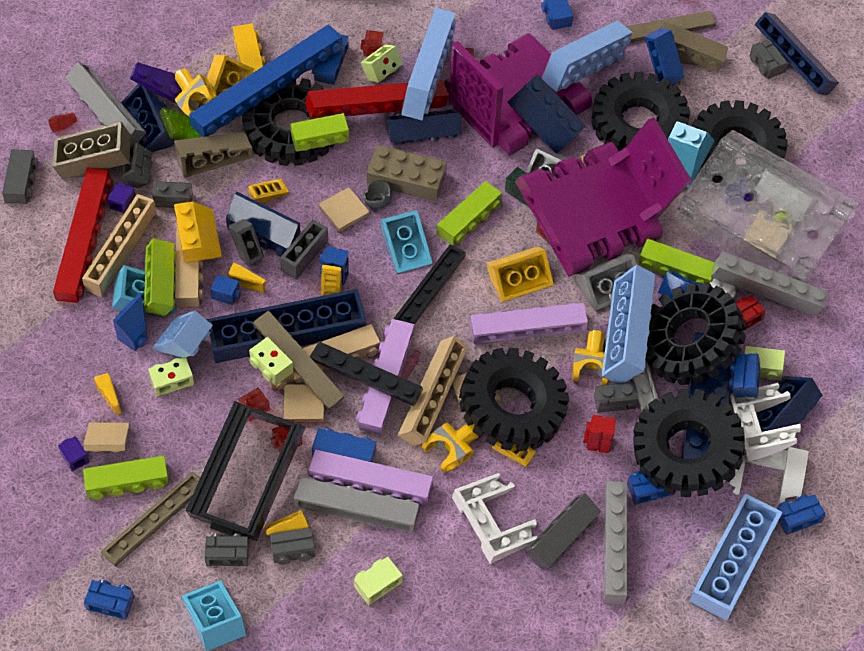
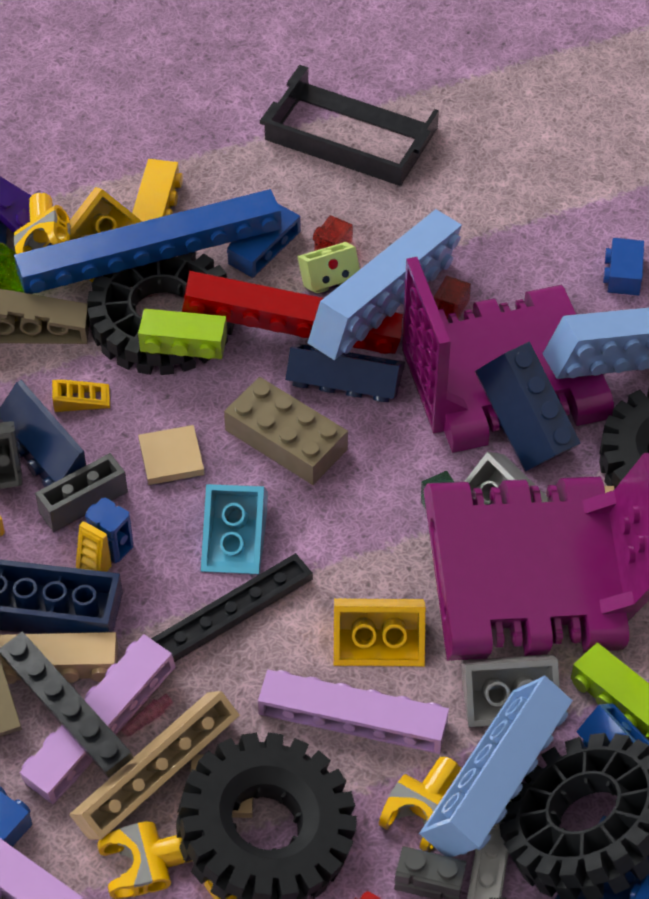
camera: 25 degrees right, 5 degrees down
(377, 191) = (229, 440): dark grey hair -> none
(469, 213) = (348, 518): lime brick -> none

